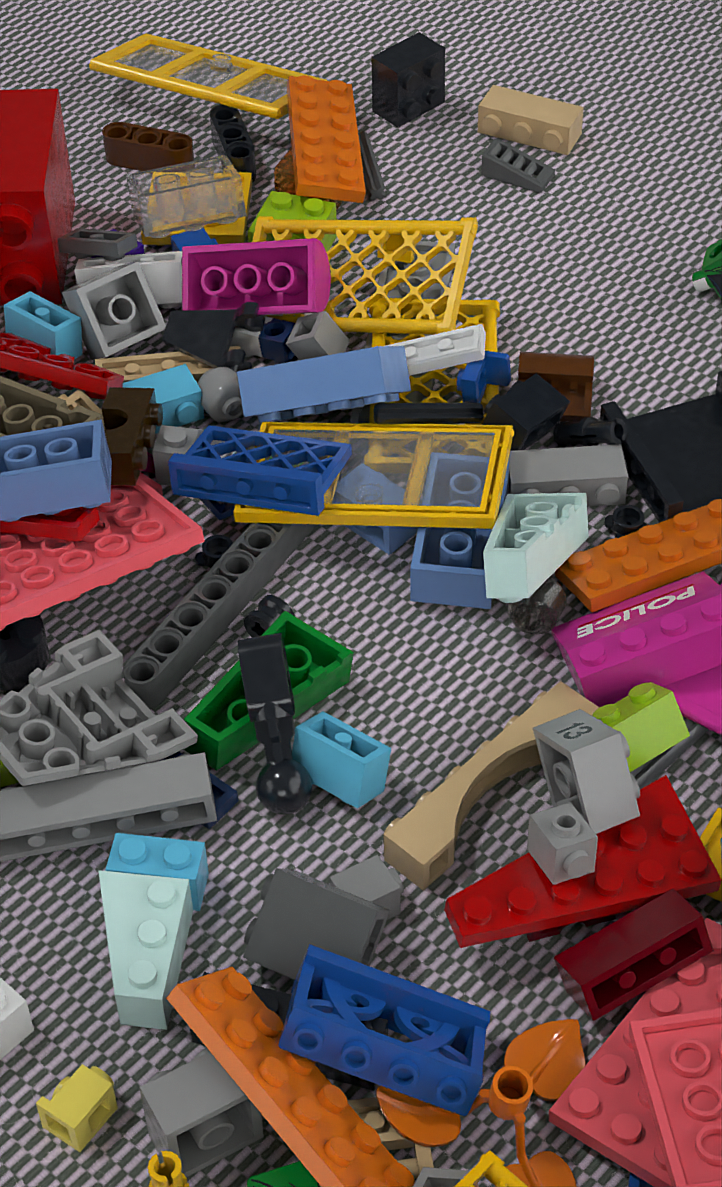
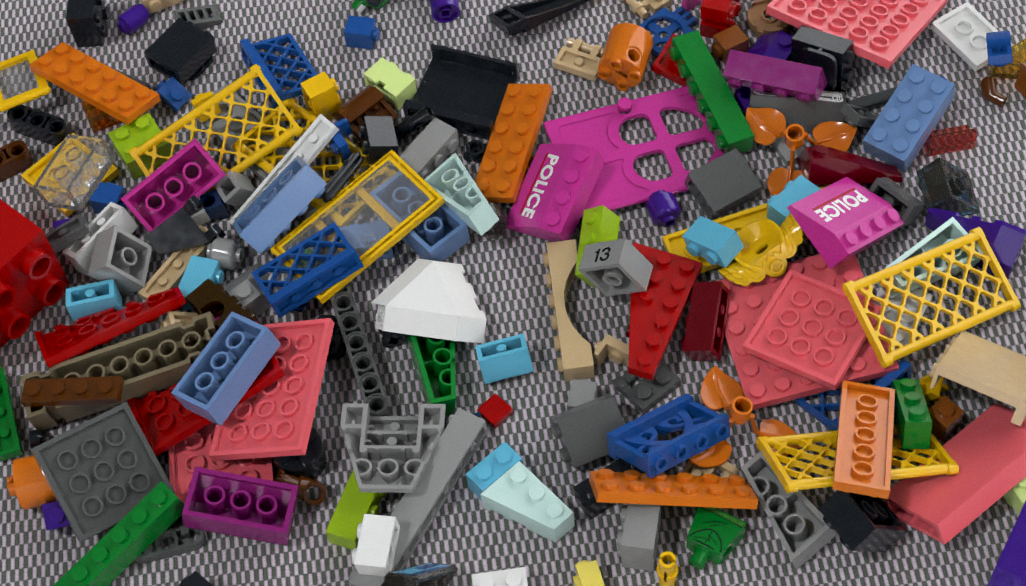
camera: 45 degrees left, 10 degrees up
(187, 578) = (338, 350): none -> black plate
(254, 816) = (495, 411): none -> red tile
(282, 783) = (461, 362): black beam -> none
(338, 623) = (432, 303): none -> white panel
(392, 205) = (173, 93): none -> blue bracket
(452, 180) = (182, 51): none -> black brick
(453, 120) = (133, 19): none -> dark purple brick
(468, 864) = (612, 347): none -> tan bracket
(469, 970) = (647, 392): none -> dark grey plate
(506, 258) = (252, 56): none -> blue fence
(525, 322) = (321, 95): none -> yellow brick
(562, 843) = (644, 303): light grey brick -> none
(628, 376) = (391, 82): none -> yellowish green brick
(666, 305) = (361, 32): none -> blue brick

